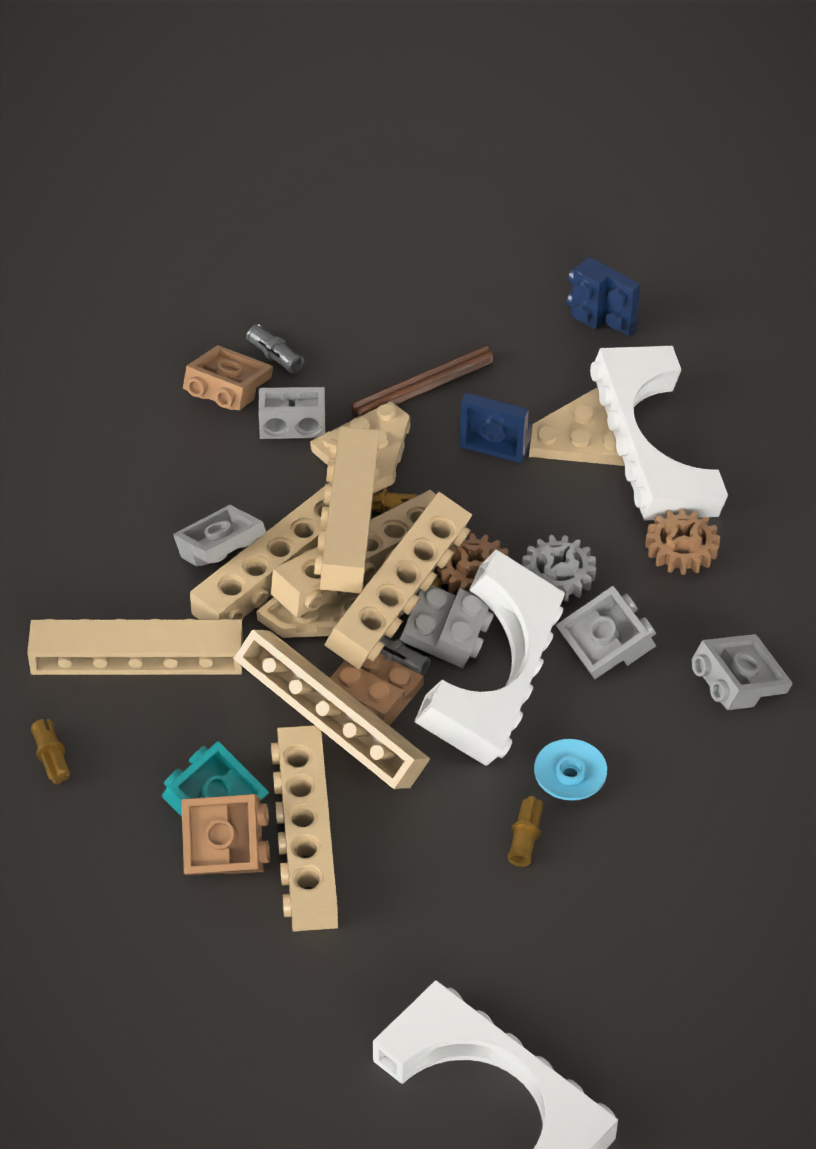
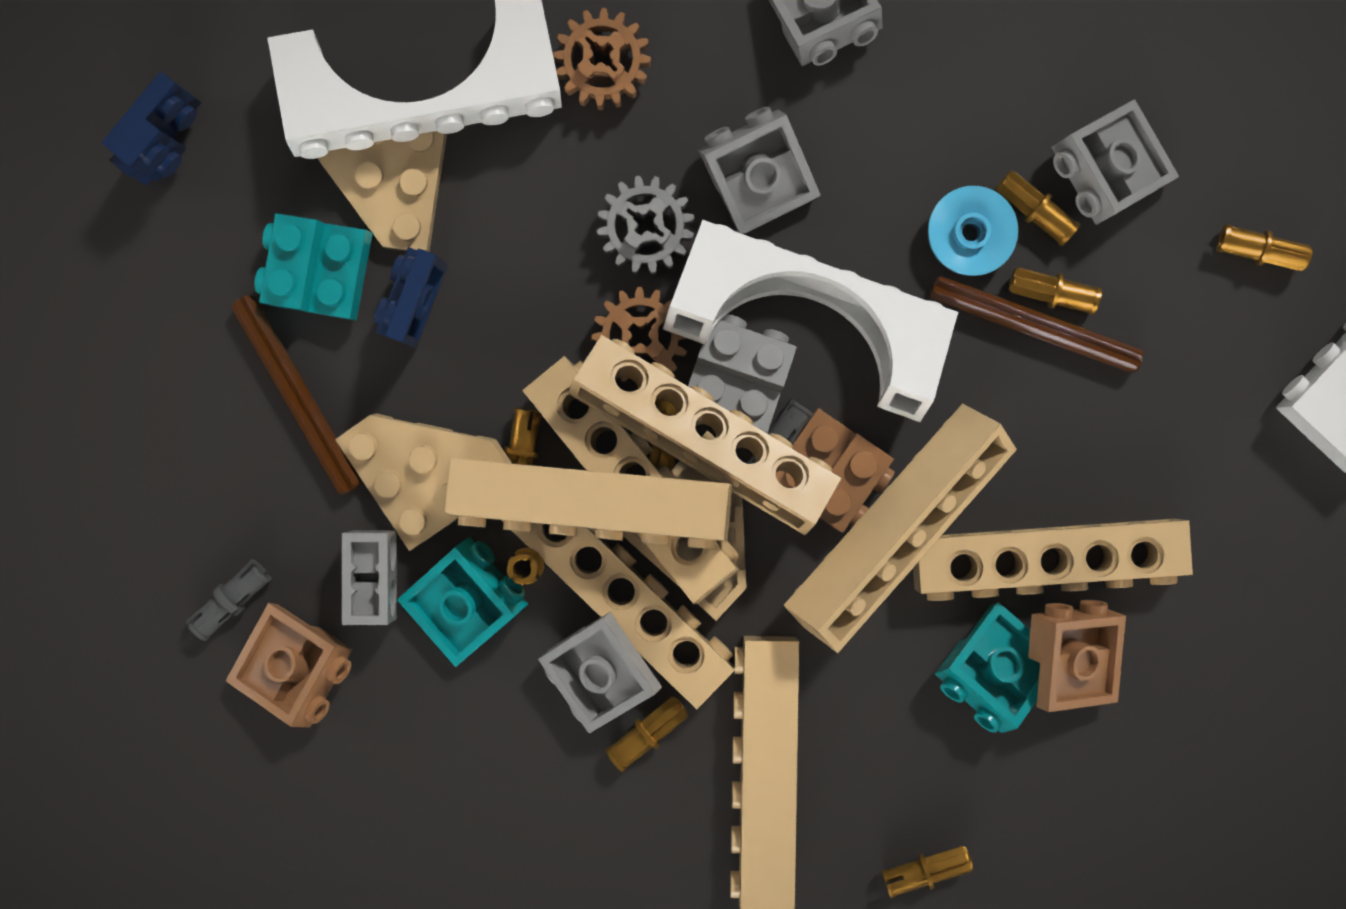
camera: 90 degrees left, 40 degrees up
(168, 576) = (647, 733): none -> pearl gold axle
(274, 468) = (463, 600): none -> teal plate
(299, 488) = (514, 566): none -> pearl gold pin
(497, 822) = (1036, 324): none -> reddish brown axle
(517, 381) = (313, 266): none -> teal plate
(572, 976) = (1264, 248): none -> pearl gold axle
(592, 818) = (1037, 207): none -> pearl gold axle
(635, 863) = (1113, 162): none -> light grey plate

